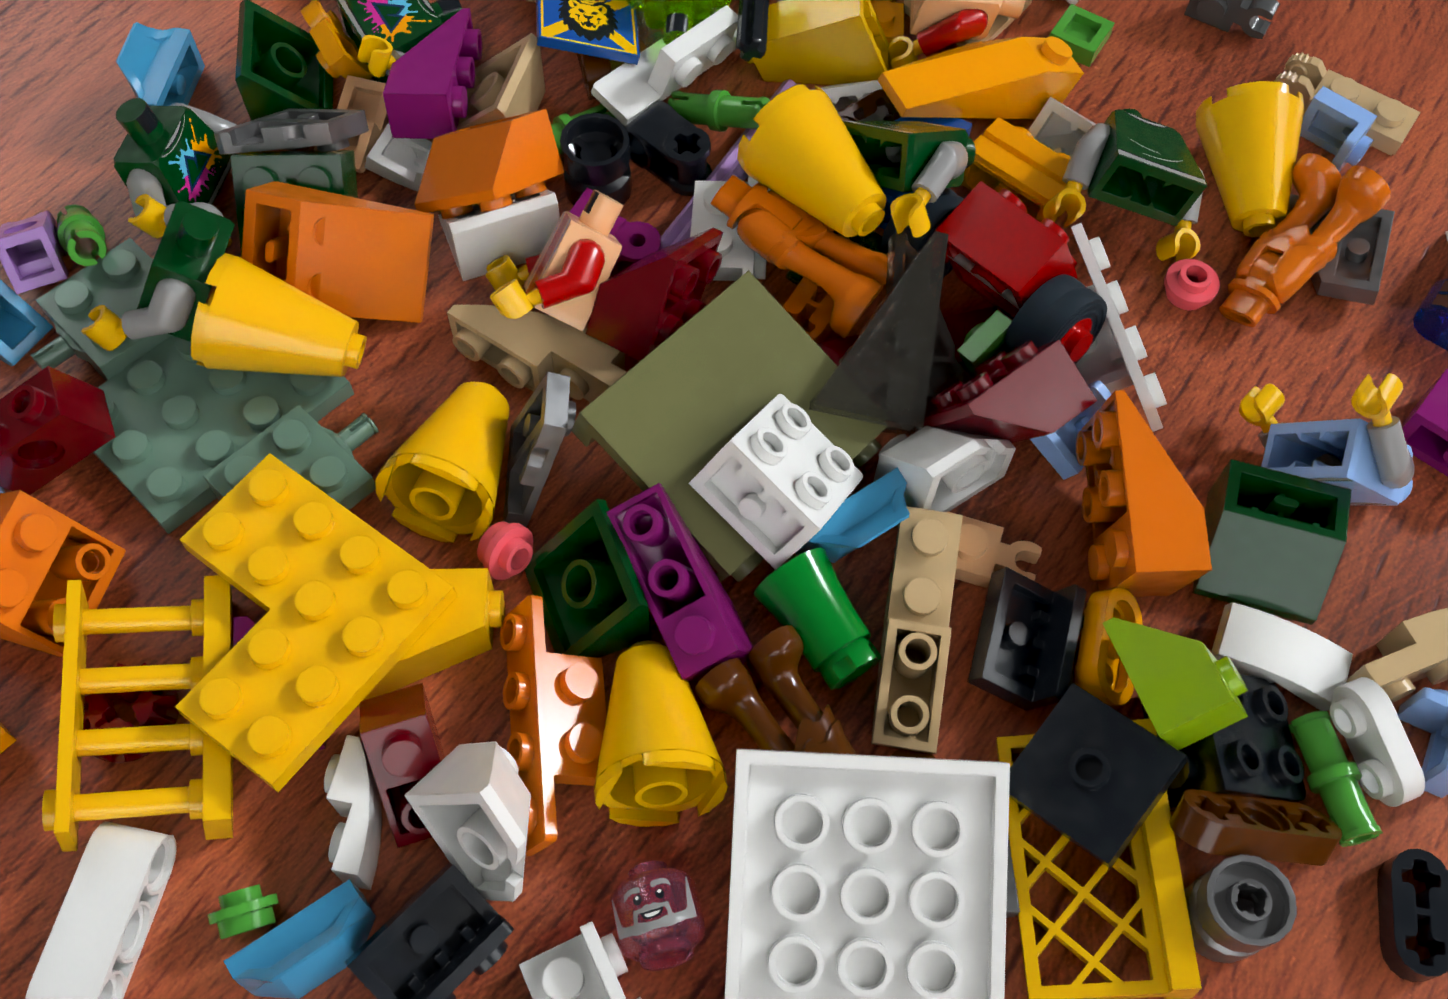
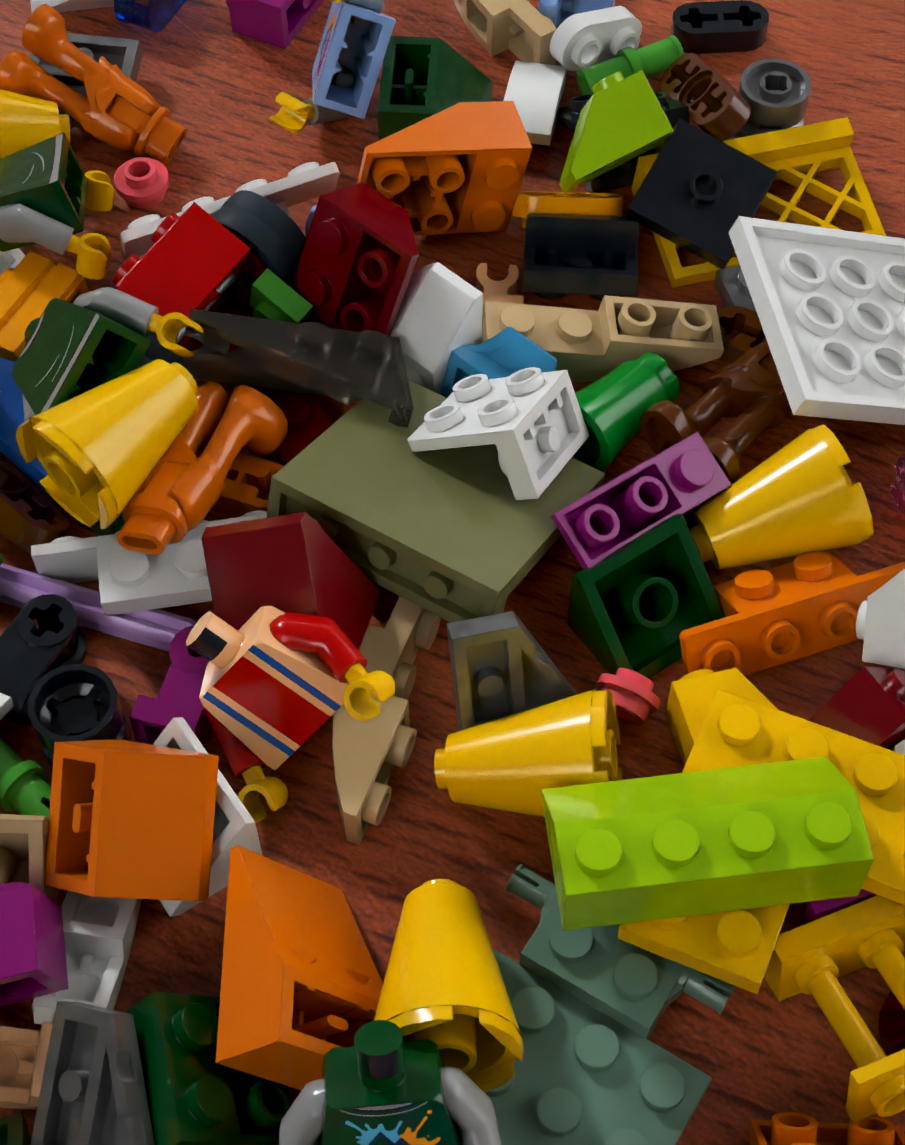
camera: 100 degrees left, 5 degrees down
(293, 508) = (705, 842): none -> lime slope

